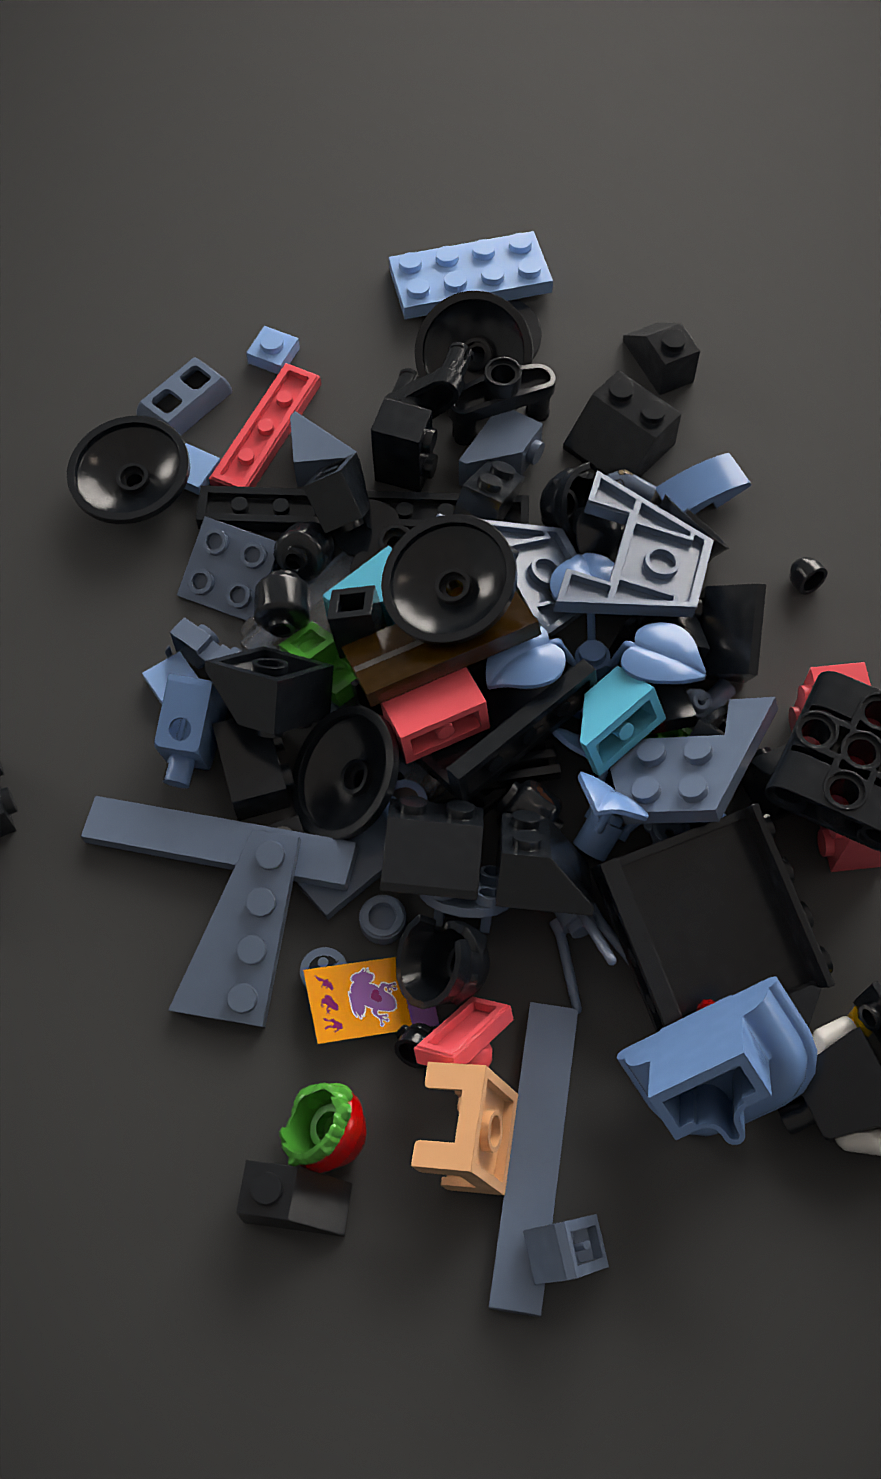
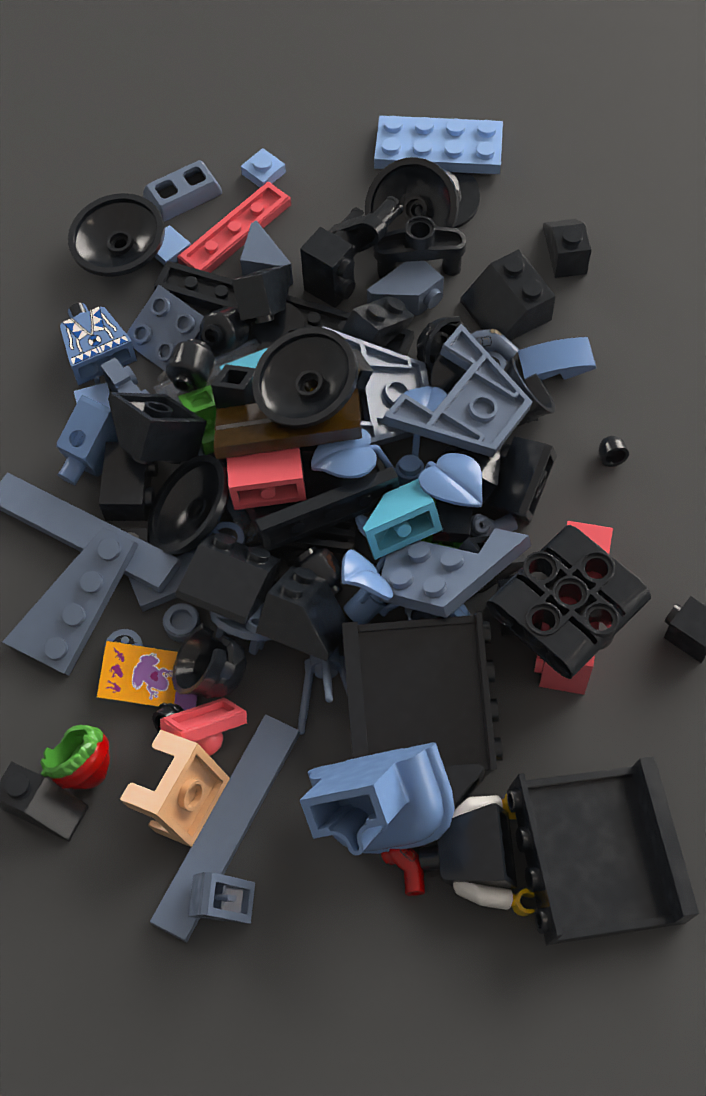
camera: 20 degrees right, 0 degrees up
(146, 606) = (92, 340): none -> torso
(780, 1142) = (409, 862): none -> red arm

